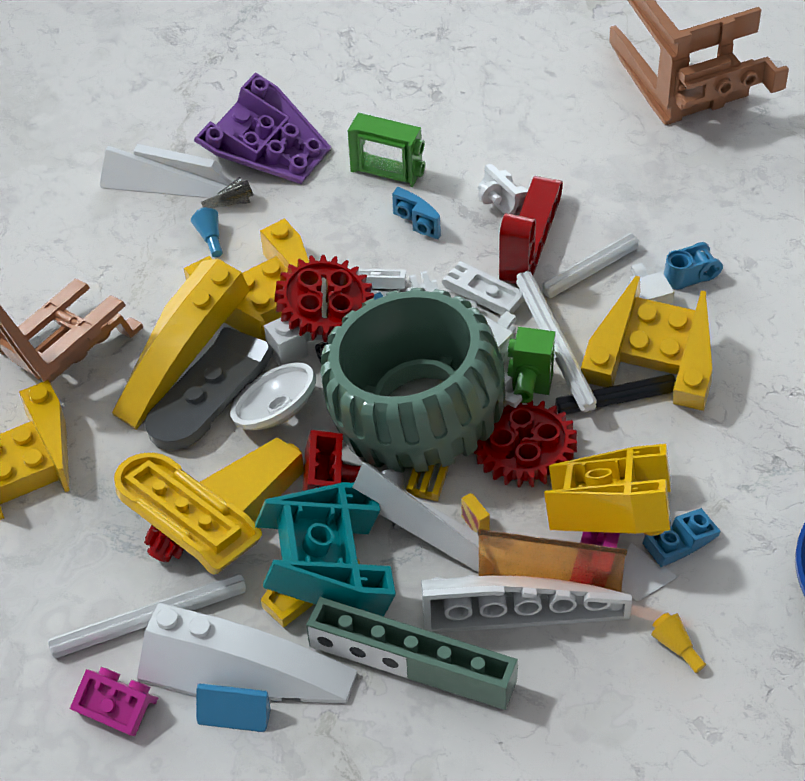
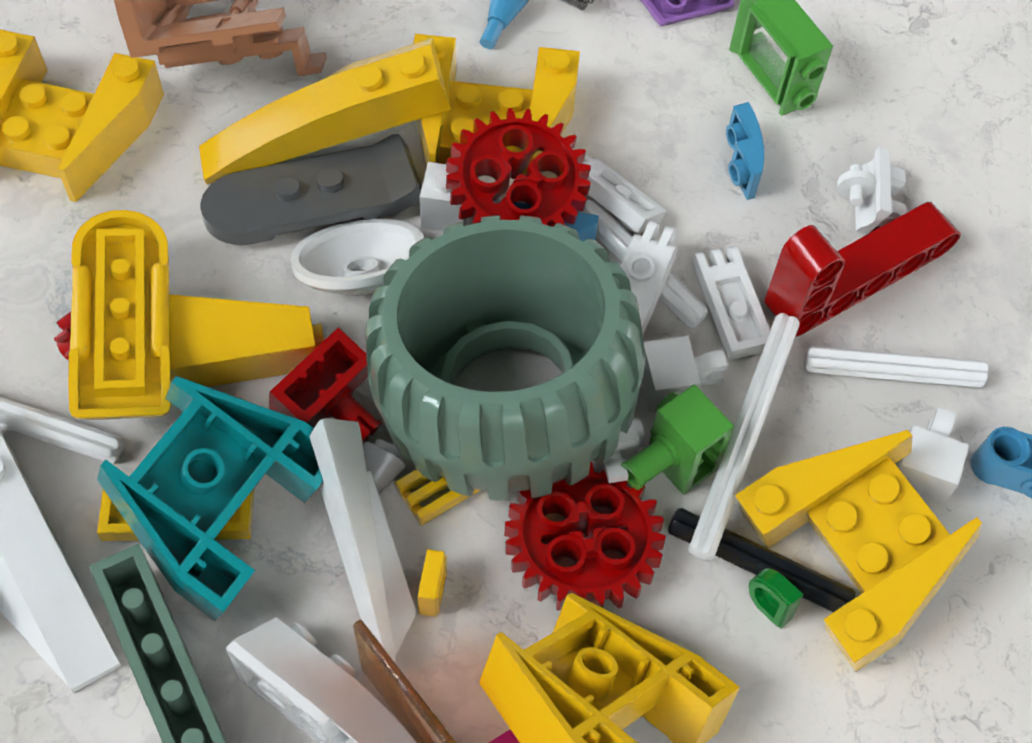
camera: 35 degrees right, 10 degrees up
(638, 402) = (774, 596): none -> green tile

